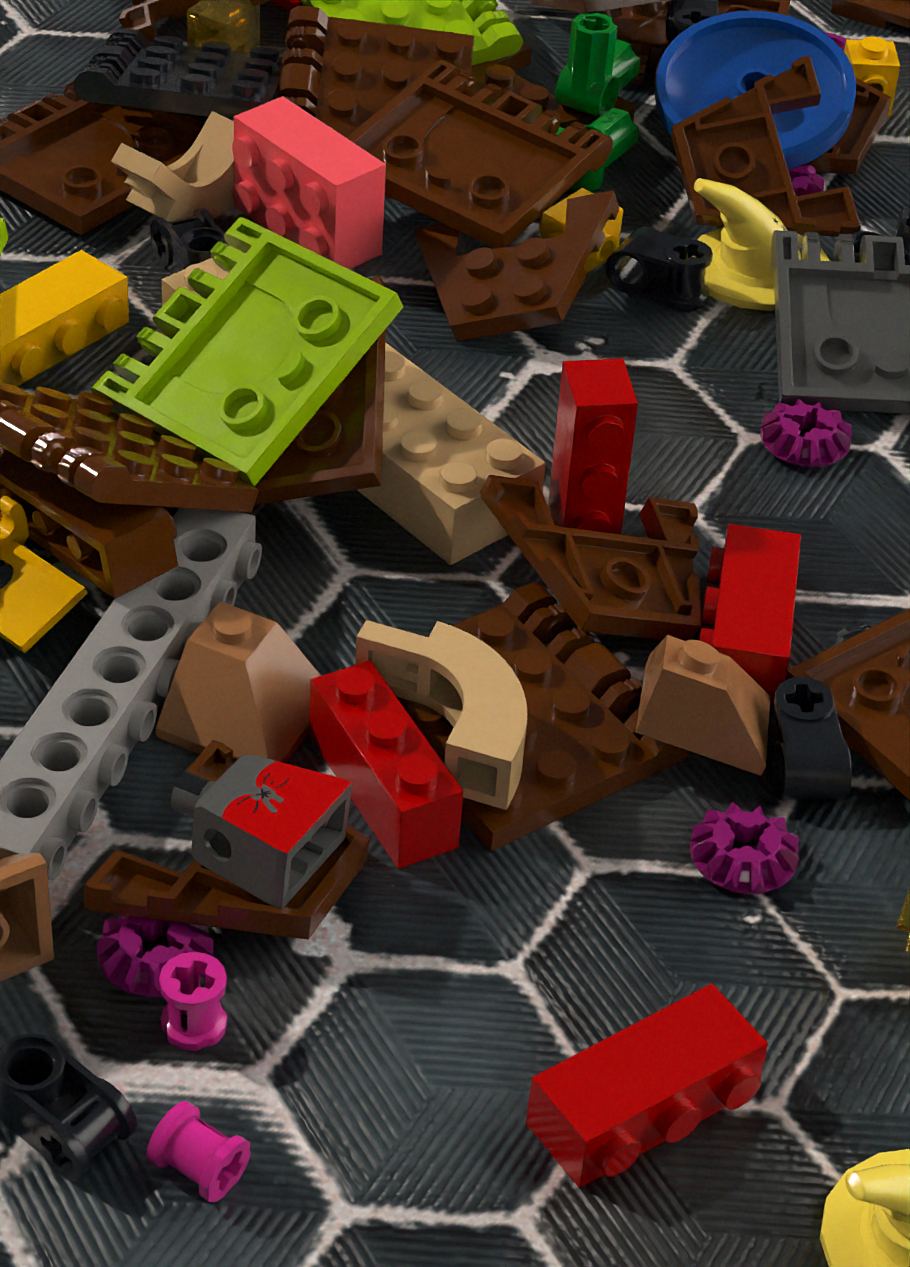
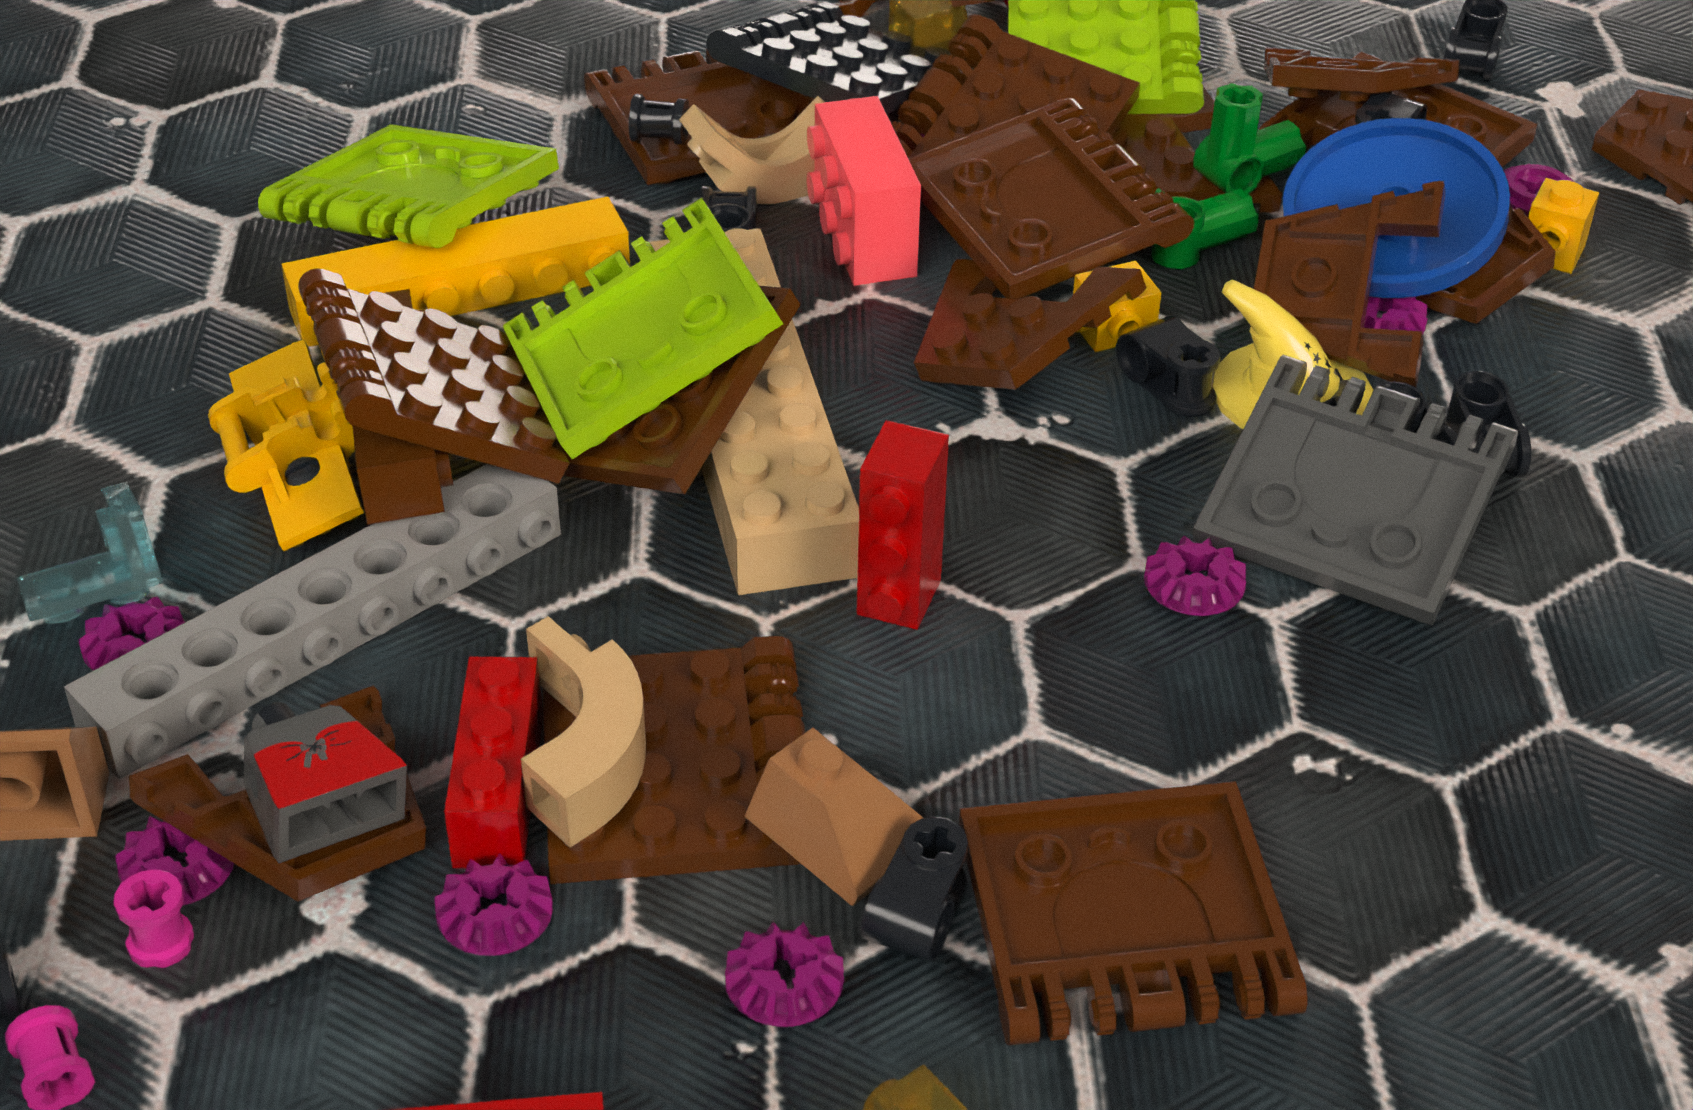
camera: 30 degrees right, 0 degrees up
(71, 169) = (657, 119): none -> black bush
(240, 687) = (421, 645): medium nougat slope -> none
(492, 899) = (499, 927): none -> magenta gear
(608, 578) = (862, 661): reddish brown wing -> none
(753, 601) = (979, 733): red brick -> none

